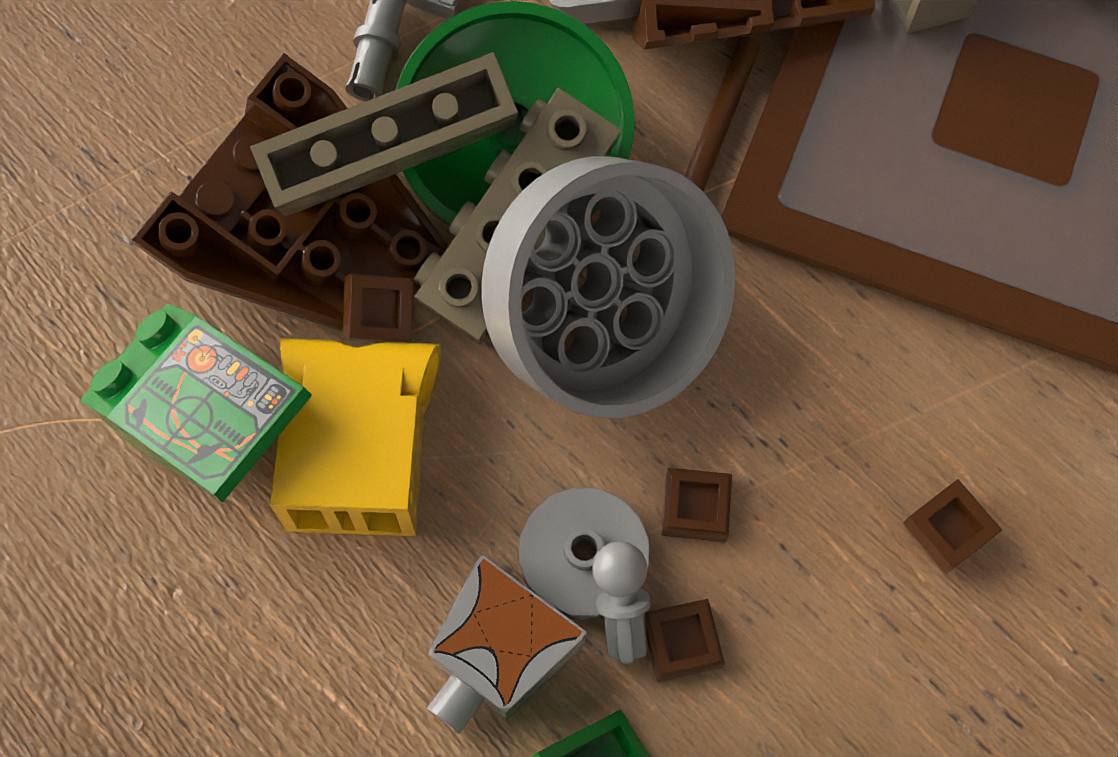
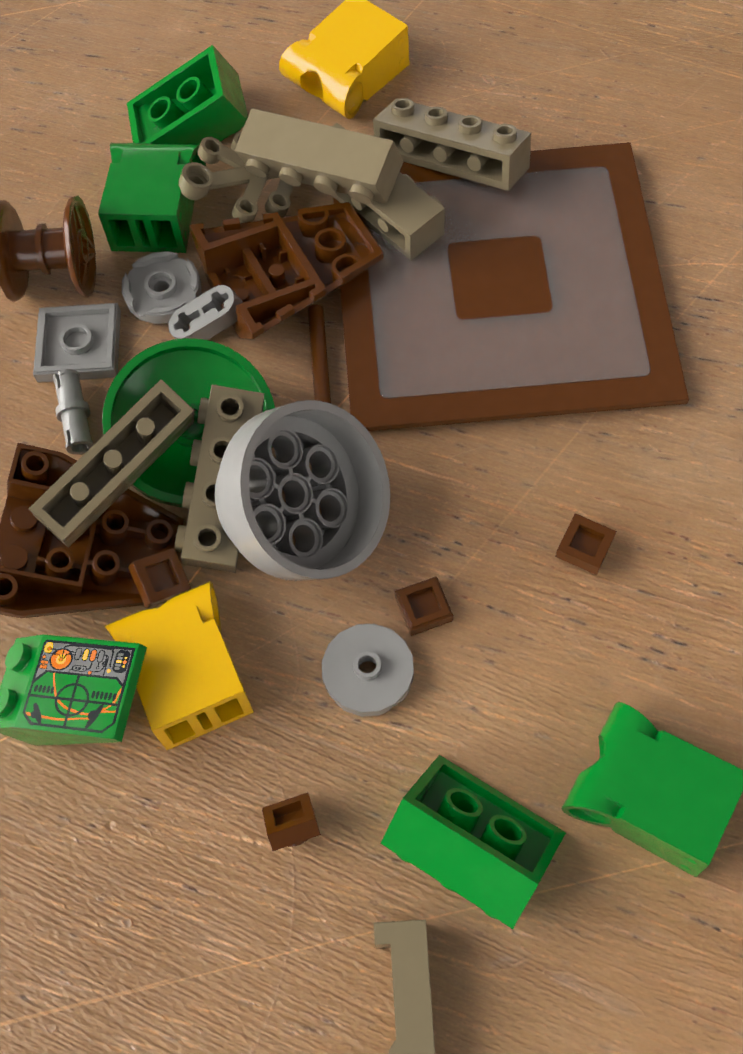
camera: 20 degrees left, 5 degrees down
(389, 702) = (290, 822): none -> reddish brown plate
(498, 646) = (343, 752): torso -> none
(620, 573) = (398, 667): light grey axle -> none
(683, 640) = (456, 693): reddish brown tile -> none

